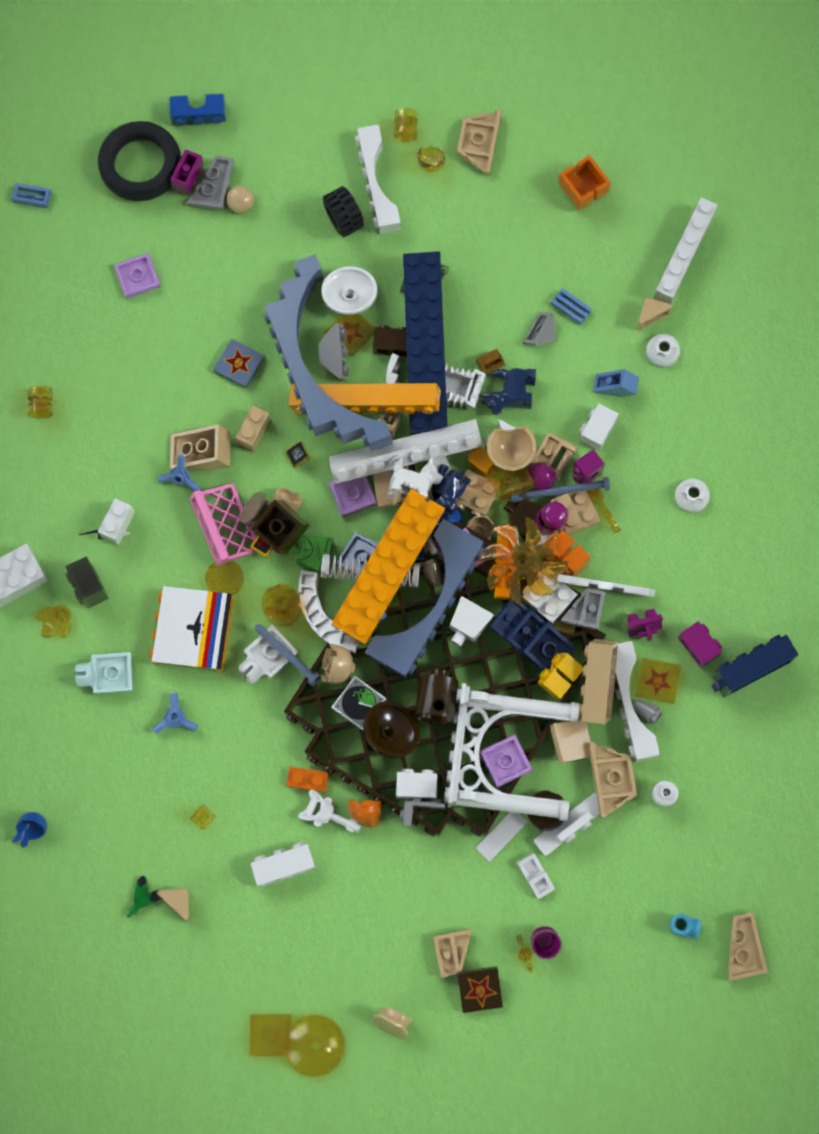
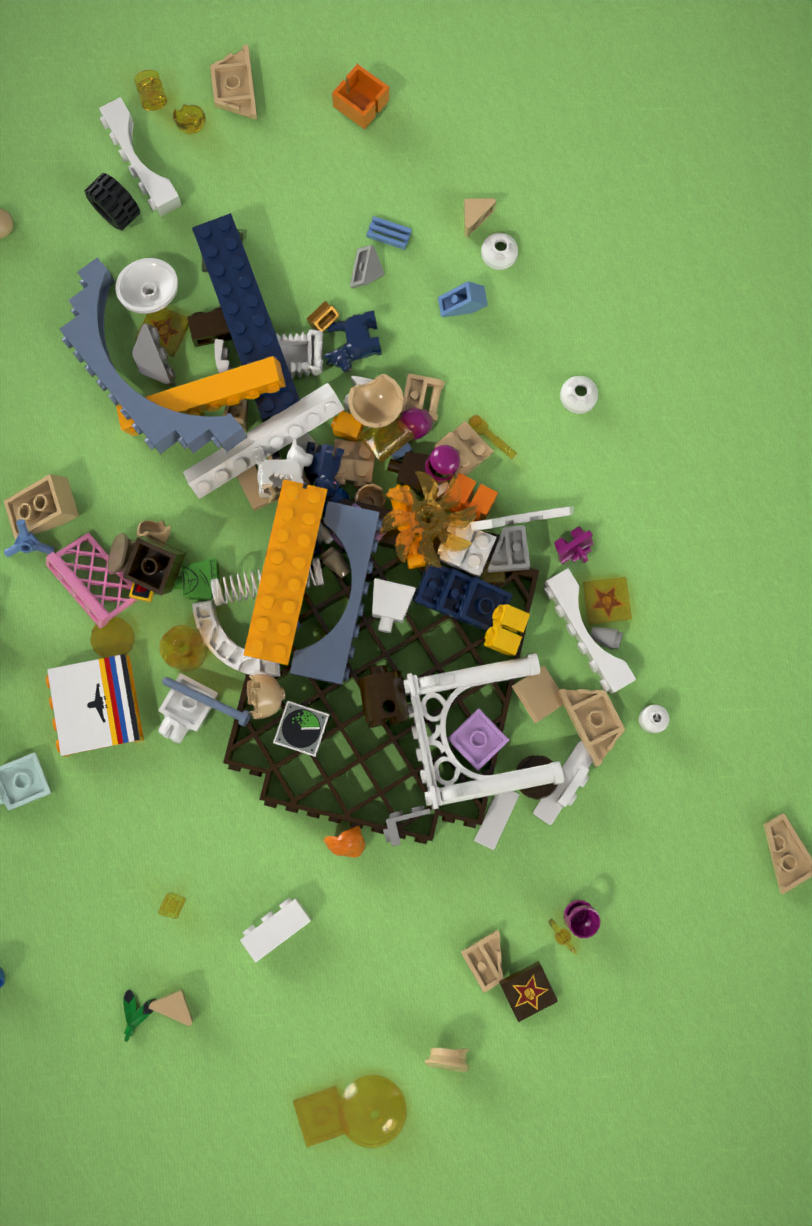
camera: 25 degrees left, 5 degrees up
(174, 717) = (107, 807): medium blue piece -> none
(239, 363) = (53, 401): sand blue tile -> none
(253, 428) = (90, 466): tan brick -> none
(298, 454) = (149, 479): slope -> none
(307, 779) = (272, 826): orange plate -> none
(326, 813) = (304, 857): white piece -> none
(353, 495) = (222, 505): lavender tile -> none
(357, 547) = (247, 560): sand blue plate -> none
(397, 724) = (351, 739): dark brown dish -> none
(416, 785) = (392, 797): white brick -> none
(535, 875) = (546, 849): white slope -> none
(569, 489) = (485, 410): sand blue bar -> none
(588, 468) = (463, 399): magenta brick -> none
(599, 426) = (459, 351): white brick -> none
(599, 681) = (550, 623): tan brick -> none
(685, 251) = (490, 137): white arch -> none
(691, 928) = (726, 851): medium azure piece -> none
(700, 644) = (639, 548): magenta brick -> none
(754, 666) = (706, 551): dark blue piece -> none

